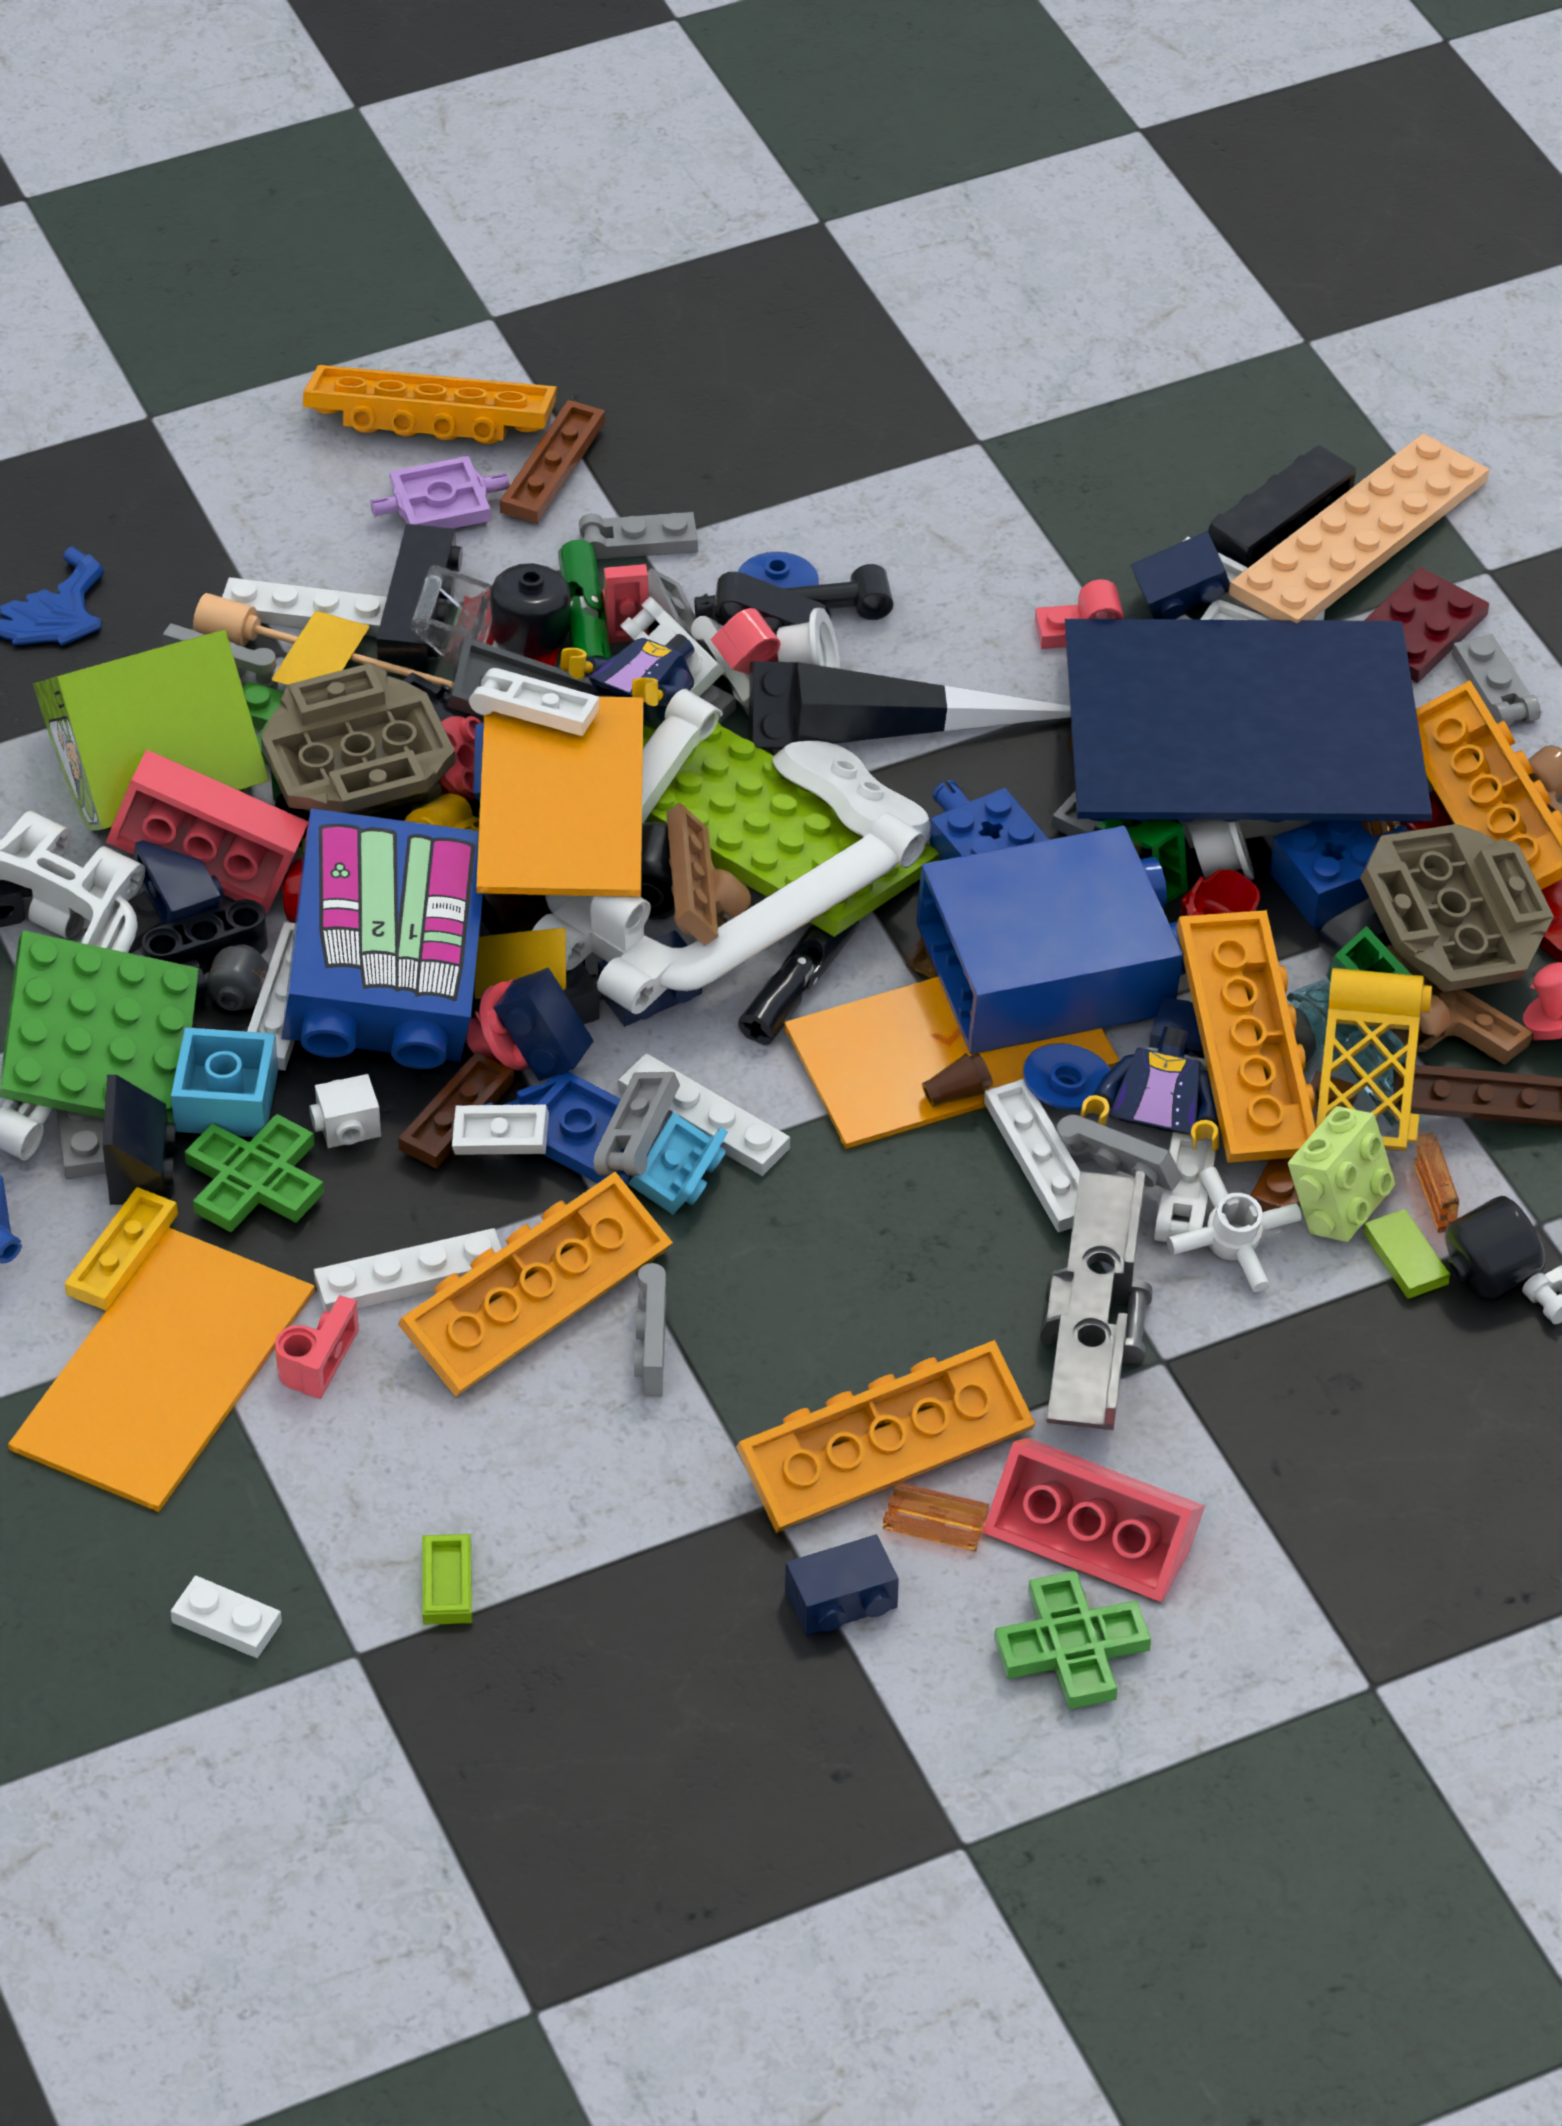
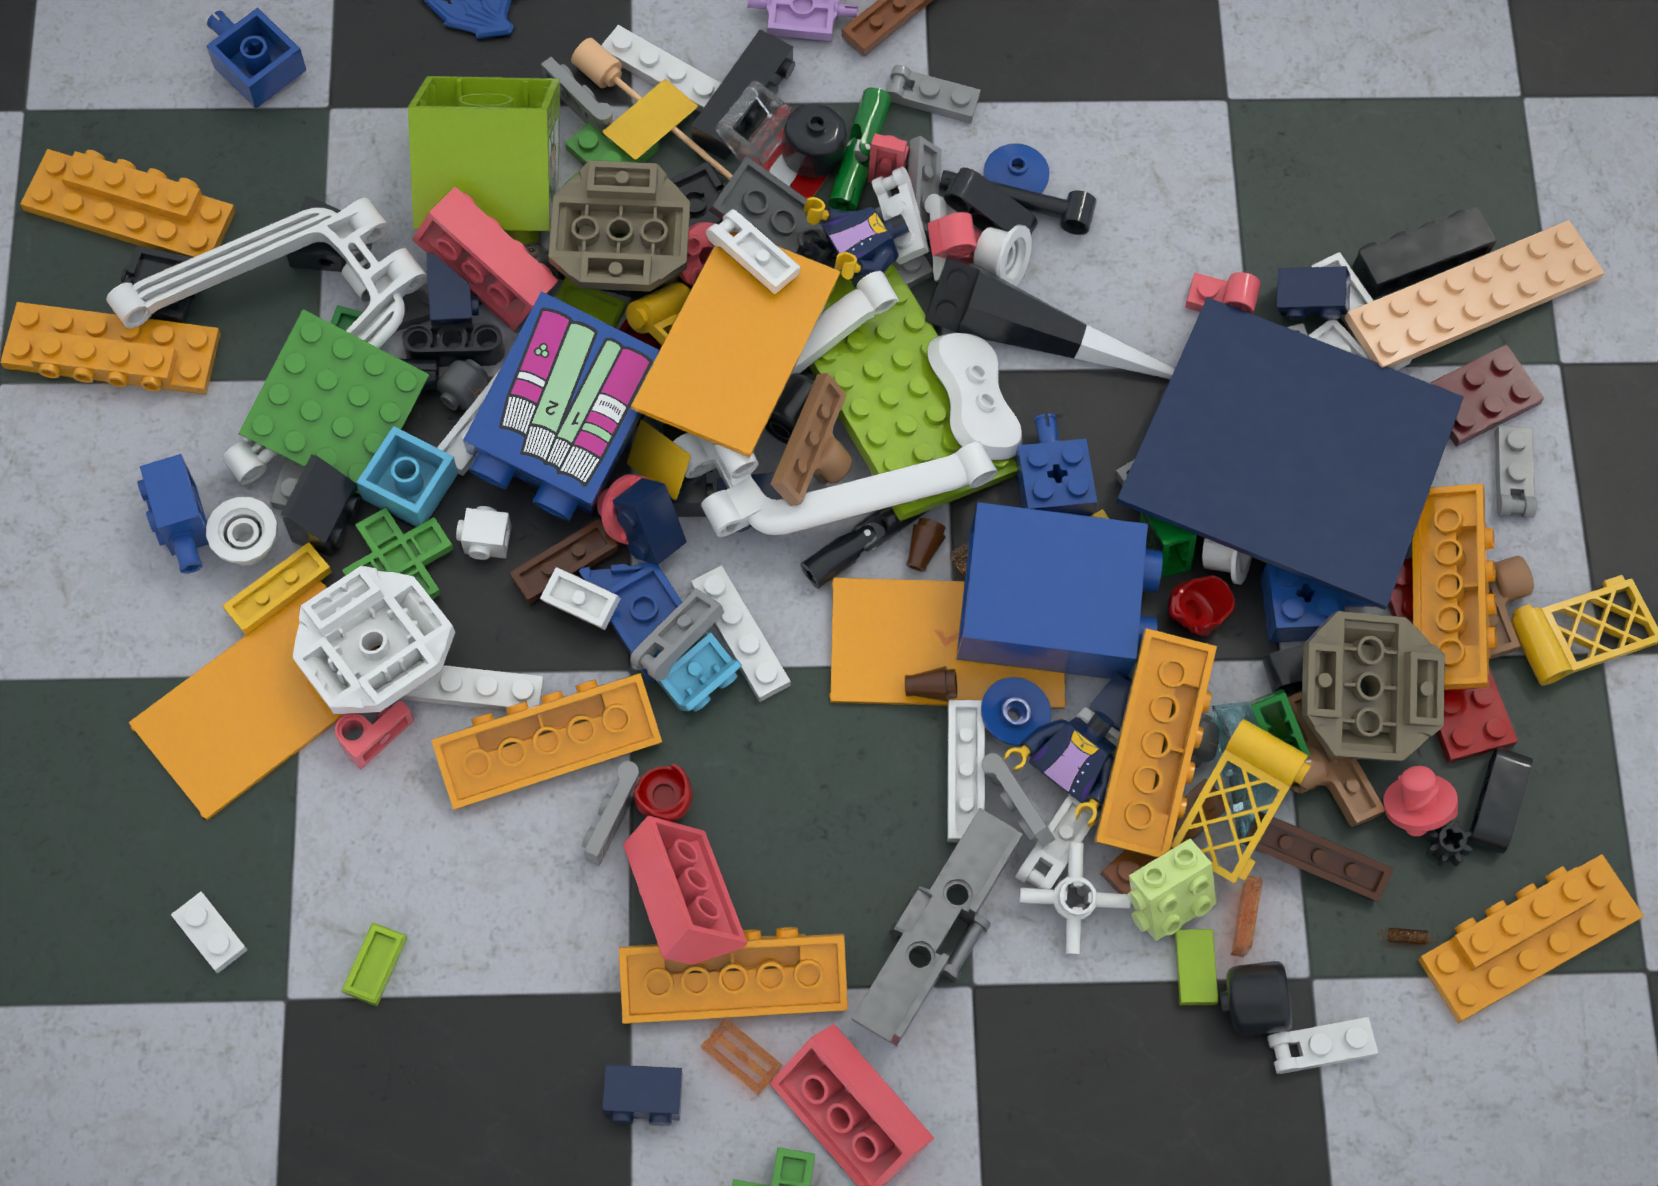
camera: 20 degrees right, 20 degrees up
(52, 1200) = (242, 531): none -> white piece
(275, 1242) = (353, 618): none -> white piece
(707, 1285) = (664, 793): none -> red hair
(780, 1363) = (683, 892): none -> coral slope
(872, 953) = (924, 543): none -> reddish brown cone

